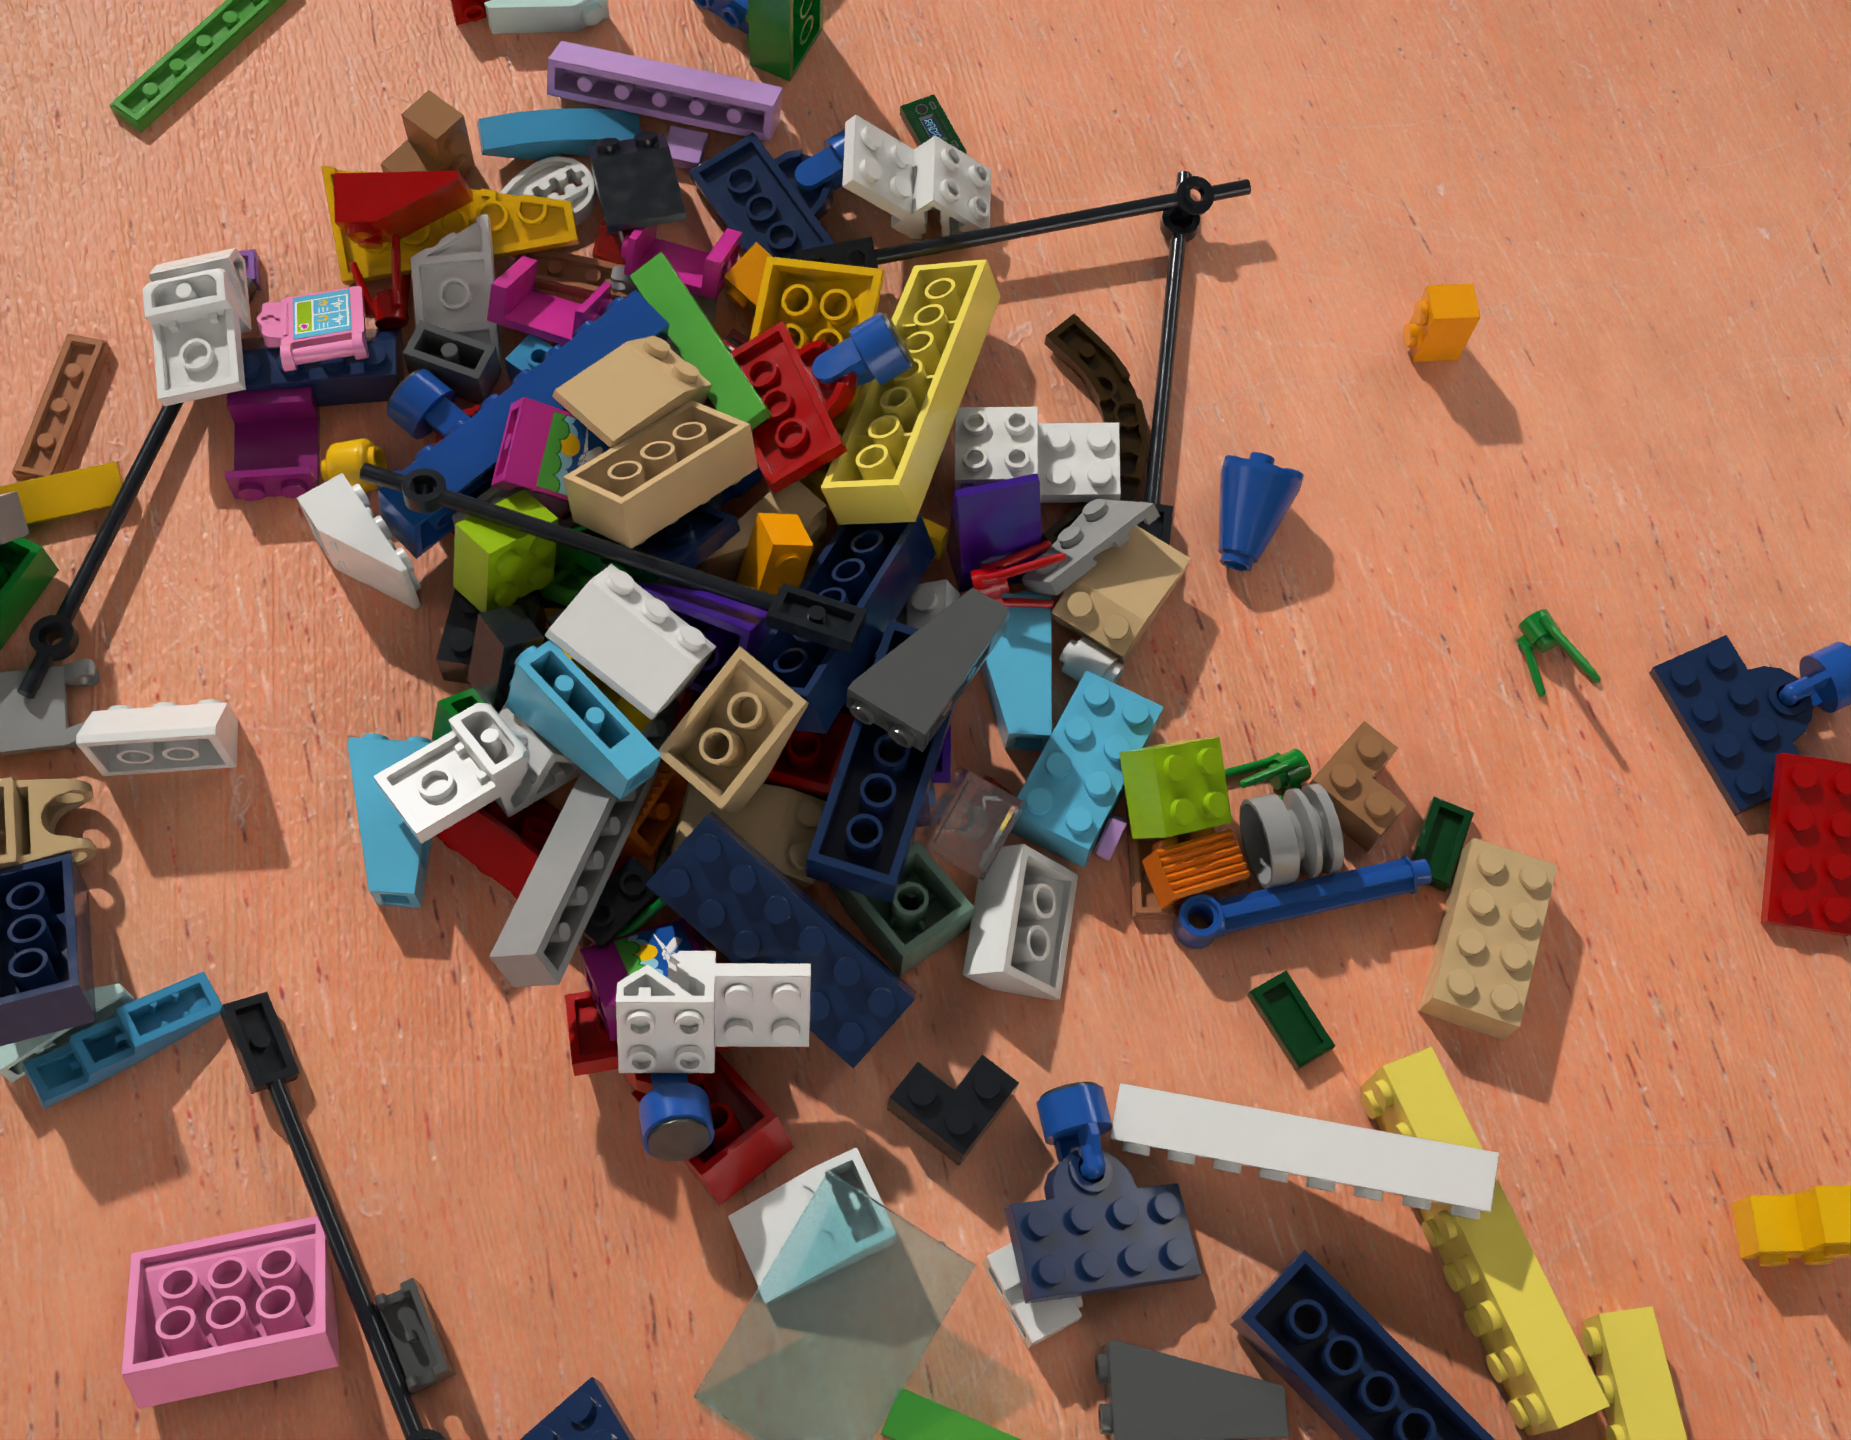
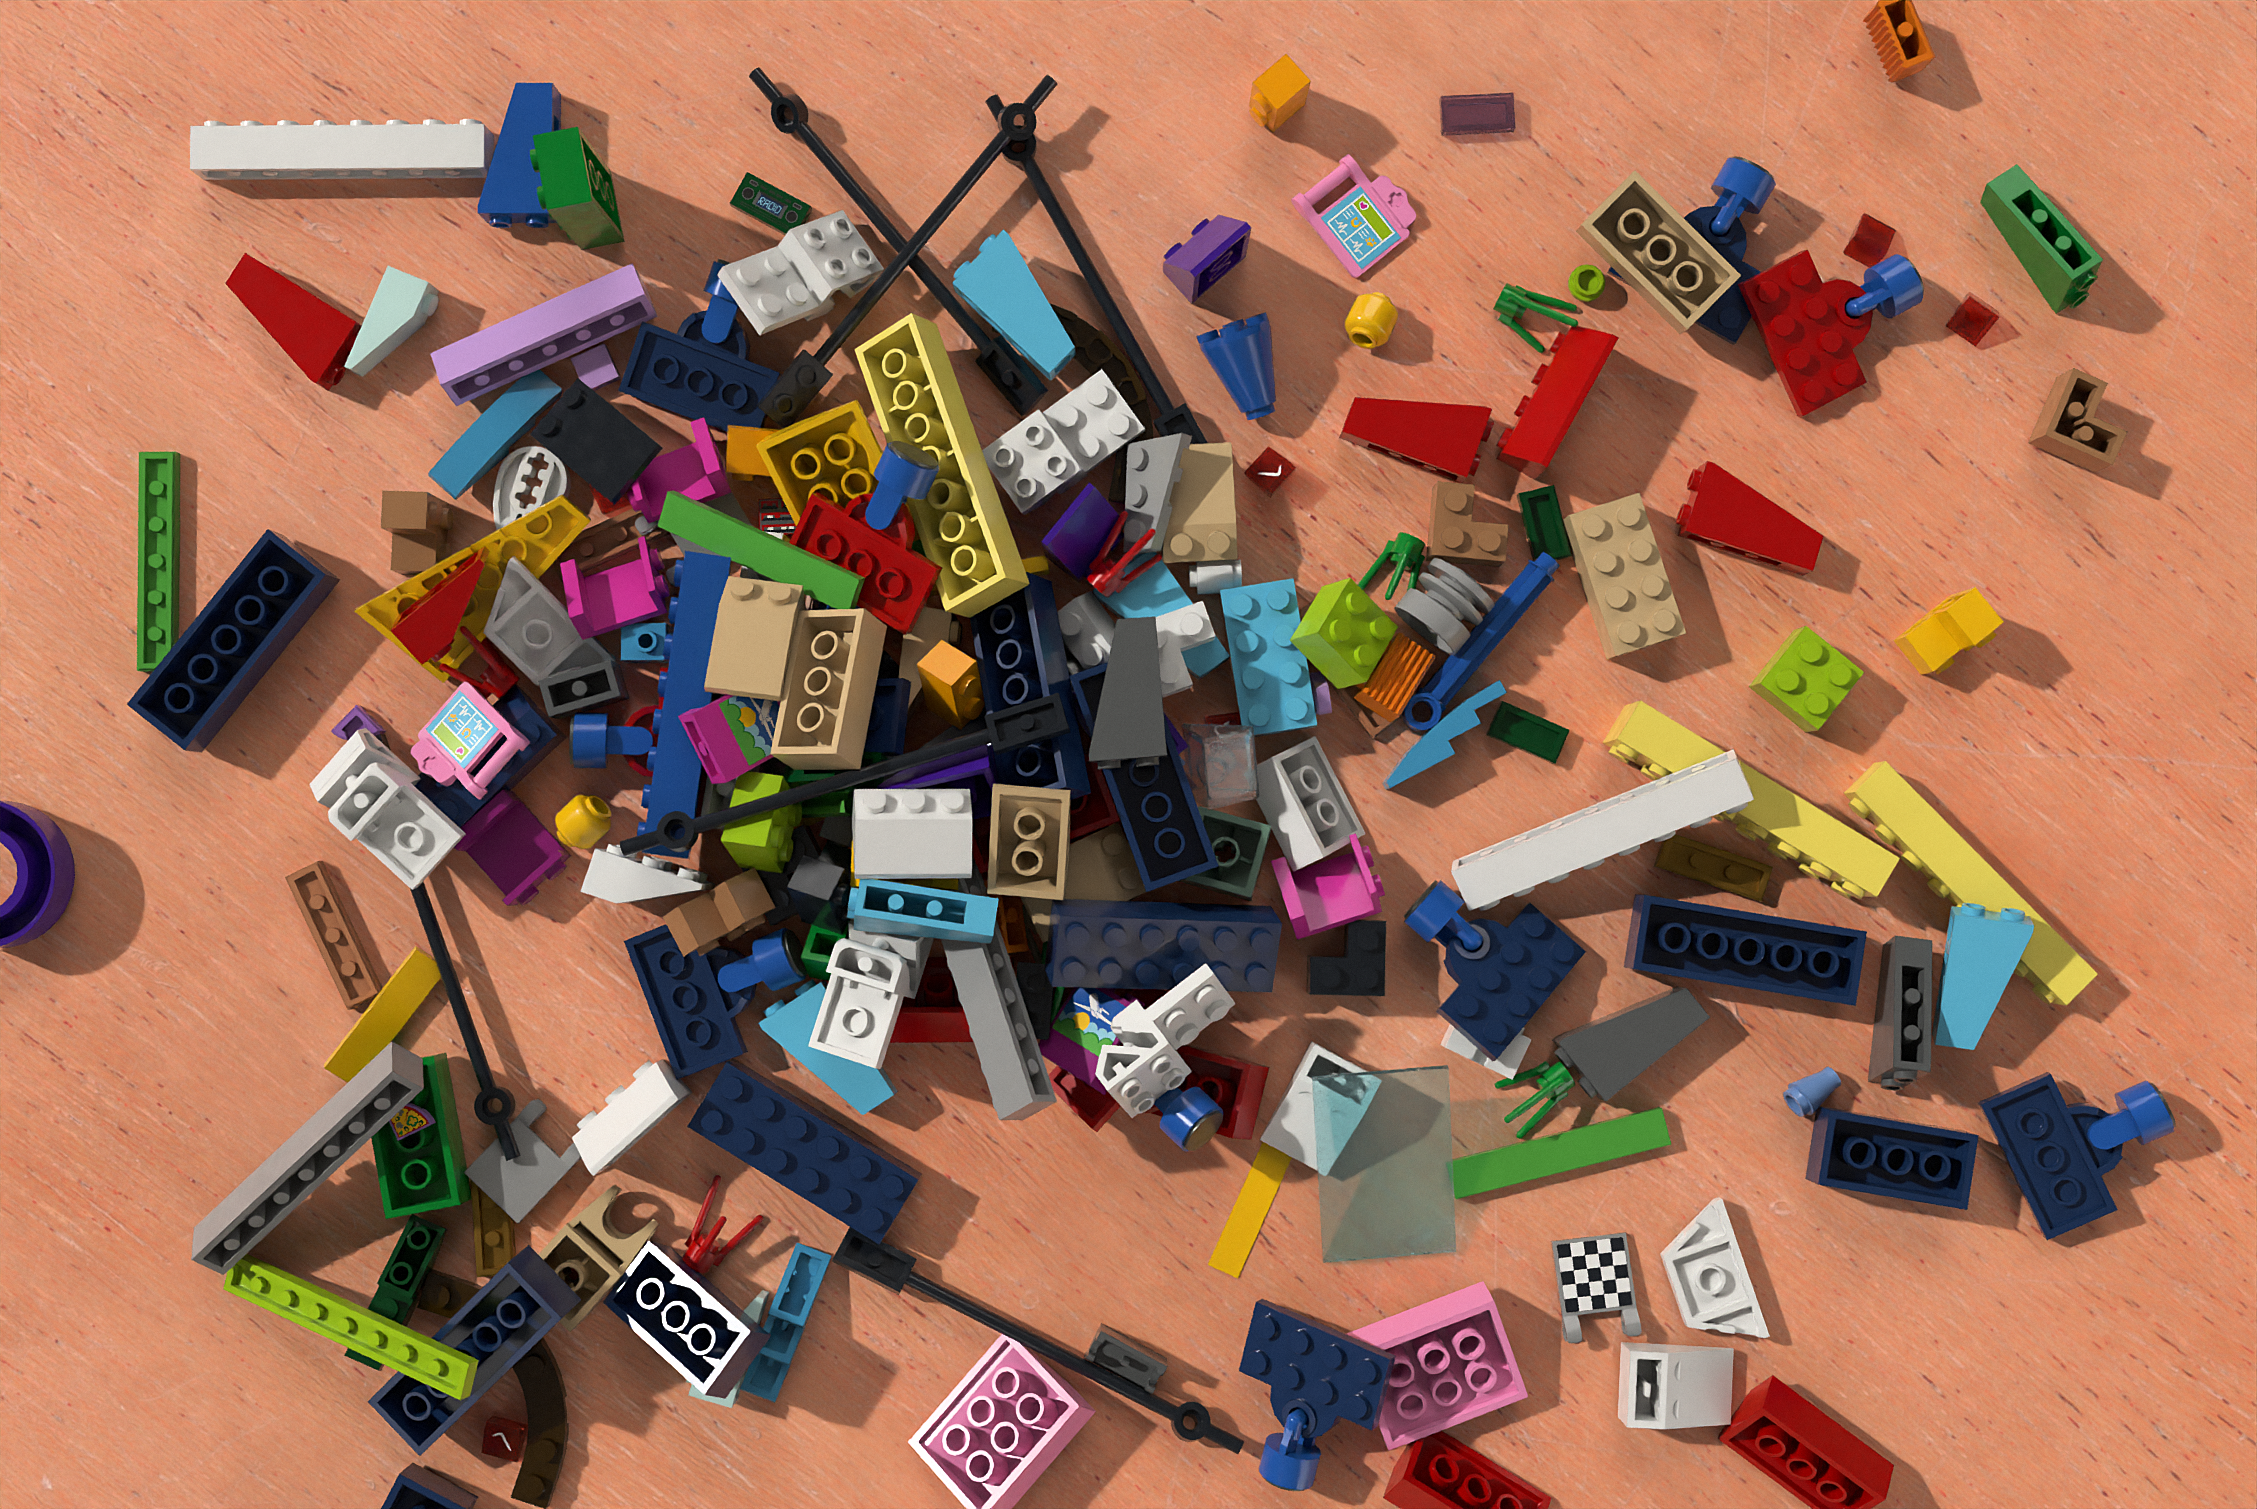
camera: 30 degrees left, 20 degrees up
(114, 907) = (703, 1250): none -> red plant
(203, 130) = (233, 642): none -> dark blue brick
(288, 890) = (804, 1150): none -> dark blue brick
(330, 675) = (700, 996): none -> dark blue plate
(400, 616) = (724, 911): none -> medium nougat brick
(661, 1285) = (1250, 1210): none -> yellow sticker
(983, 1019) = (1330, 891): none -> dark pink panel
(1011, 672) = (1176, 633): none -> white brick
(1033, 362) = (997, 358): none -> black bar
(1071, 1385) = (1553, 1085): none -> green plant
(1080, 320) = (1012, 302): none -> medium azure slope
(1189, 960) = (1434, 743): none -> dark azure slope
(1208, 619) = (1270, 471): none -> clear red slope
(1284, 404) = (1207, 255): none -> slope
(1375, 676) = (1422, 434): none -> red slope
(1395, 1292) = (1714, 867): none -> pearl gold tile
(1396, 556) = (1371, 320): none -> yellow head
(1443, 479) = (1363, 221): none -> piece
(1527, 736) = (1555, 400): none -> red slope
(1612, 464) = (1477, 114): none -> tile
(1616, 1168) = (1806, 679): none -> lime brick
(1624, 664) = (1586, 283): none -> lime plate
(1647, 978) = (1744, 522): none -> red slope
(1715, 668) = (1658, 252): none -> tan brick

